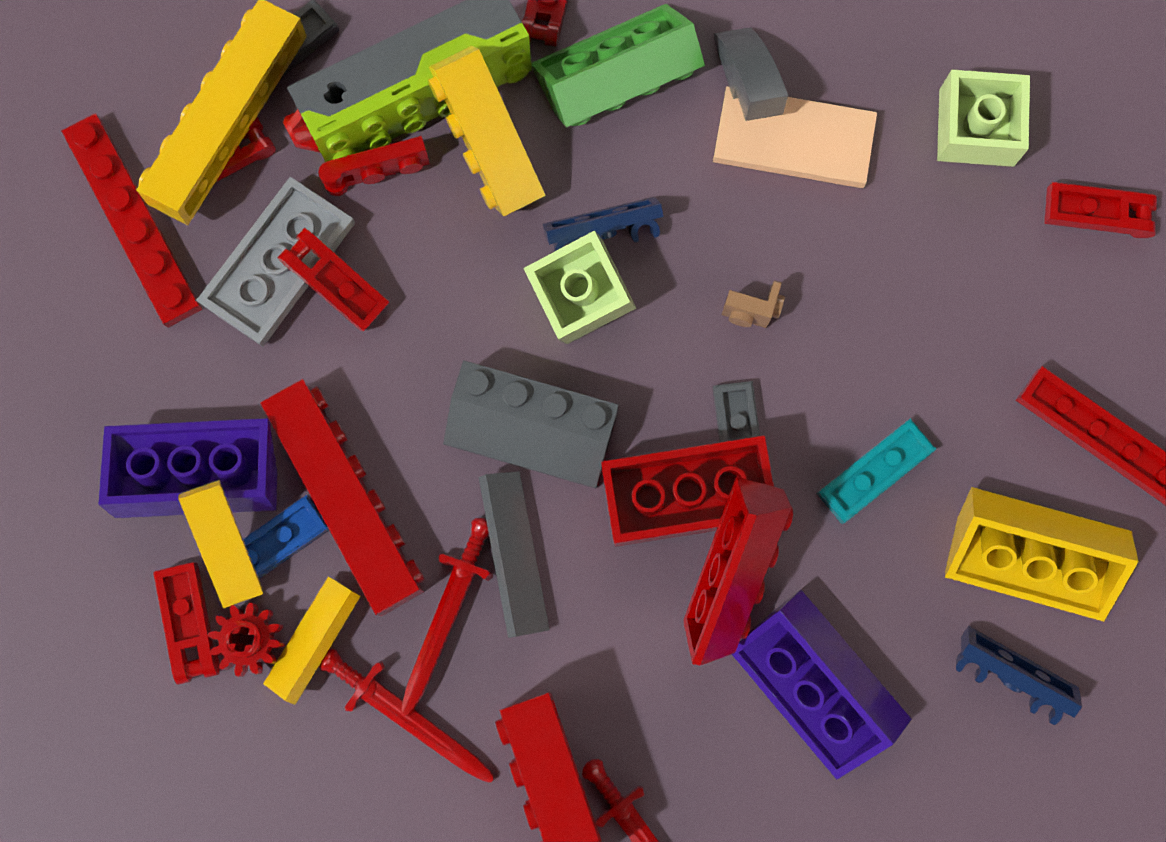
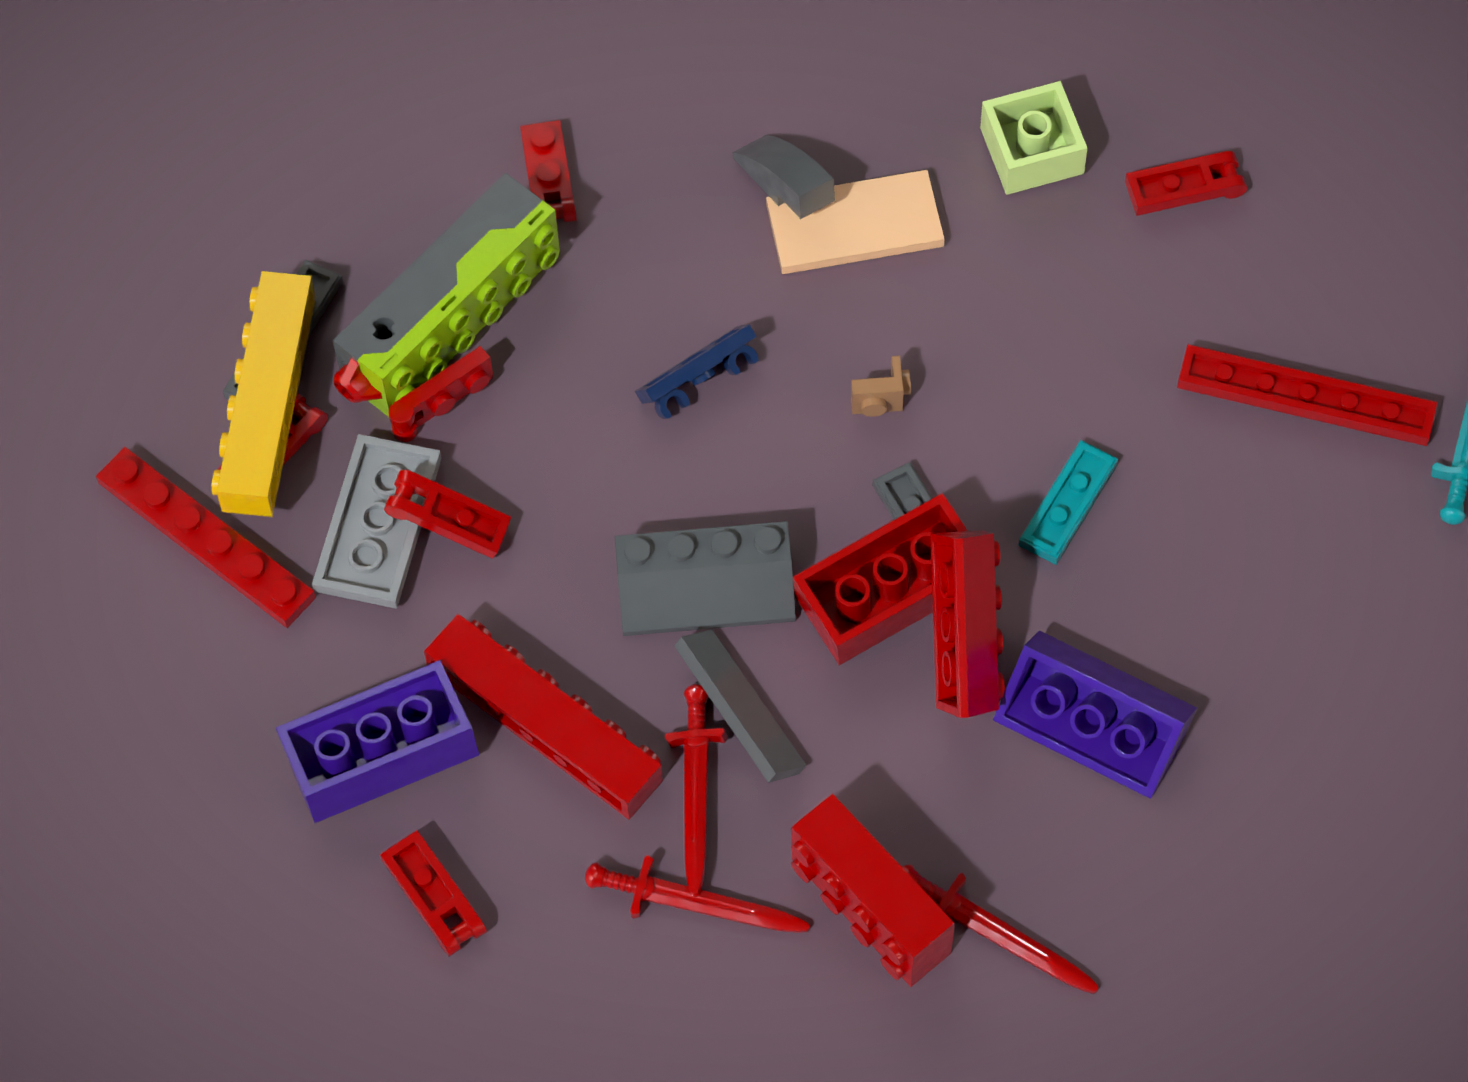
camera: 20 degrees left, 15 degrees down
(220, 543) = (444, 792): yellow tile -> none
(238, 653) = (521, 883): red gear -> none
(285, 535) = (485, 794): blue tile -> none
(311, 640) = (569, 860): yellow tile -> none
(486, 131) = (548, 315): yellow brick -> none
(579, 288) = (702, 431): yellowish green brick -> none
(619, 64) = (649, 214): bright green slope -> none
(1019, 675) = (1284, 633): dark blue plate -> none
(1040, 554) = (1258, 517): yellow slope -> none

